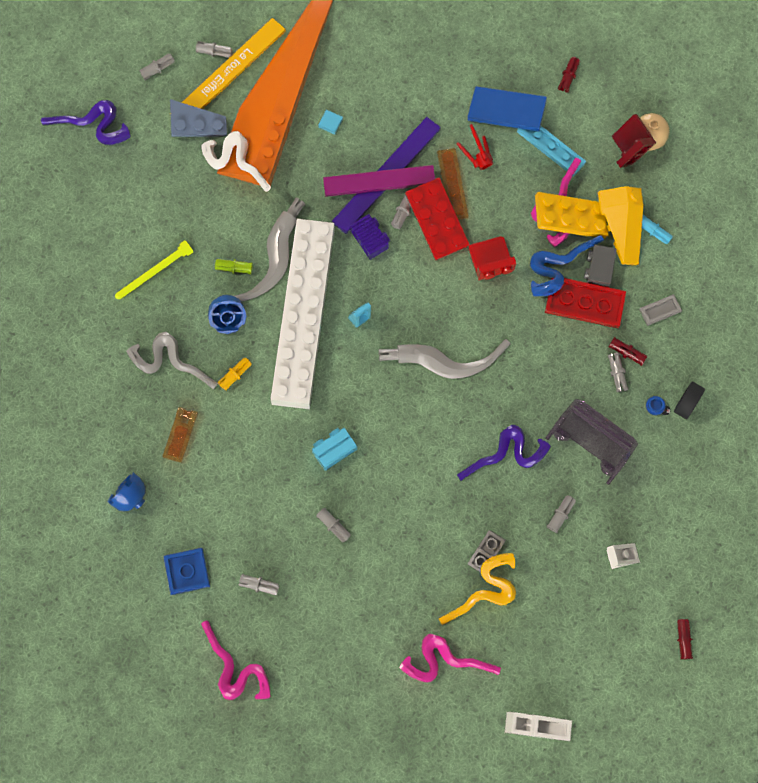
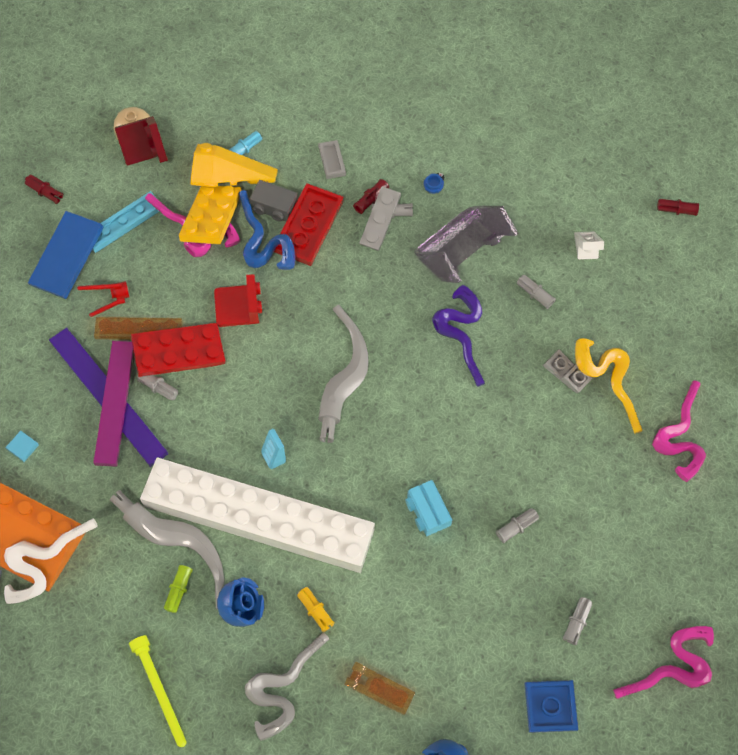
camera: 80 degrees left, 10 degrees down
(369, 236) = (180, 425): dark purple brick -> none
(603, 362) = (380, 218): none -> light grey plate
(689, 400) = (437, 148): black tyre -> none

